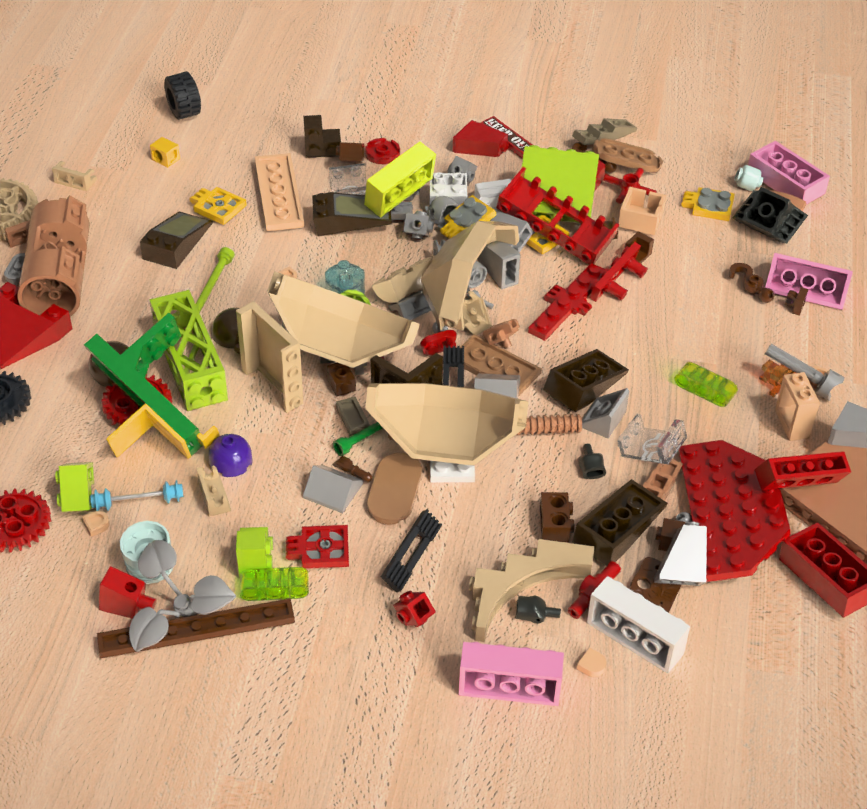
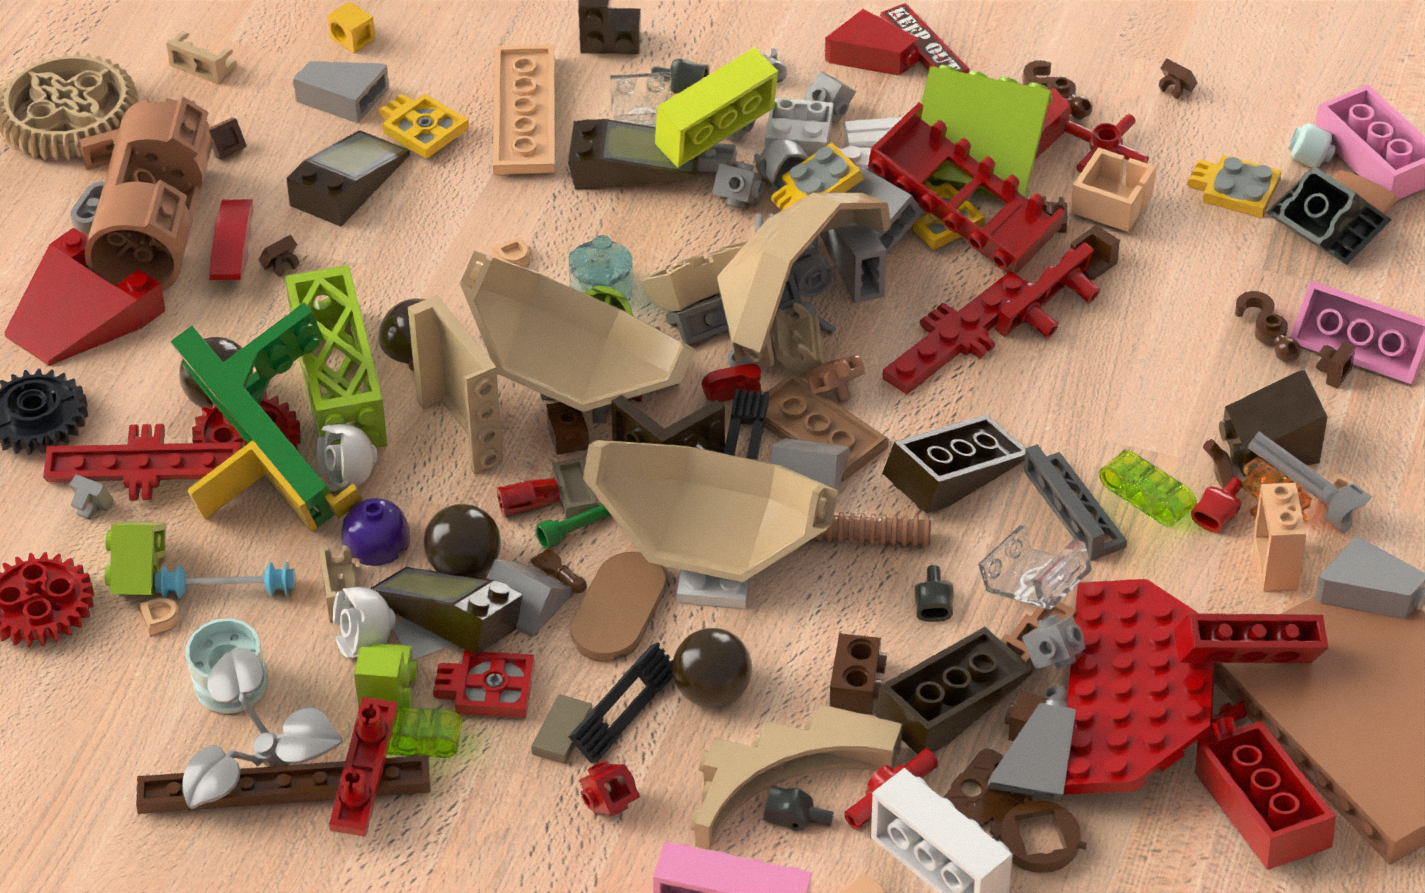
camera: 10 degrees right, 0 degrees up
(39, 449) = (89, 496): none -> light grey tile
(69, 425) = (139, 462): none -> red hinge
(98, 221) = (227, 138): none -> reddish brown tile
(109, 282) = (231, 240): none -> red slope
(123, 594) = (182, 723): red torso -> none
(141, 287) = (280, 252): none -> reddish brown tile
(164, 187) = (341, 87): none -> light grey slope
(206, 412) = (345, 462): none -> white cylinder
(225, 257) = (419, 213): lime piece -> none
(232, 513) = (362, 619): none -> white cylinder
(250, 611) = (363, 766): none -> red plate
(272, 516) = (420, 639): none -> white sticker
(289, 456) = (462, 541): none -> dark brown piece
(290, 498) = (455, 607): none -> dark brown slope
(323, 423) = (527, 495): none -> red hinge
(350, 151) = (651, 50): reddish brown brick -> none
(372, 569) = (553, 739): none -> dark tan tile
(373, 164) = (684, 74): none -> pearl dark grey piece
(382, 151) = (708, 48): red tile -> none
(465, 522) = (712, 668): none -> dark brown piece
(606, 413) = (975, 520): light grey slope -> none
(608, 129) = (1093, 44): dark tan slope -> none
(627, 155) = (1114, 90): medium nougat tile -> none
(661, 144) = (1176, 75): none -> reddish brown tile
(661, 396) = (1069, 508): none -> dark grey fence
(678, 484) = (1054, 642): none -> light grey brick
(710, 603) = (1067, 829): none -> reddish brown piece
(745, 367) = (1222, 462): none -> reddish brown bar
(750, 392) = (1217, 506): none -> red piece
(779, 328) = (1284, 413): none -> dark brown slope
(795, 523) = (1225, 720): none -> red piece

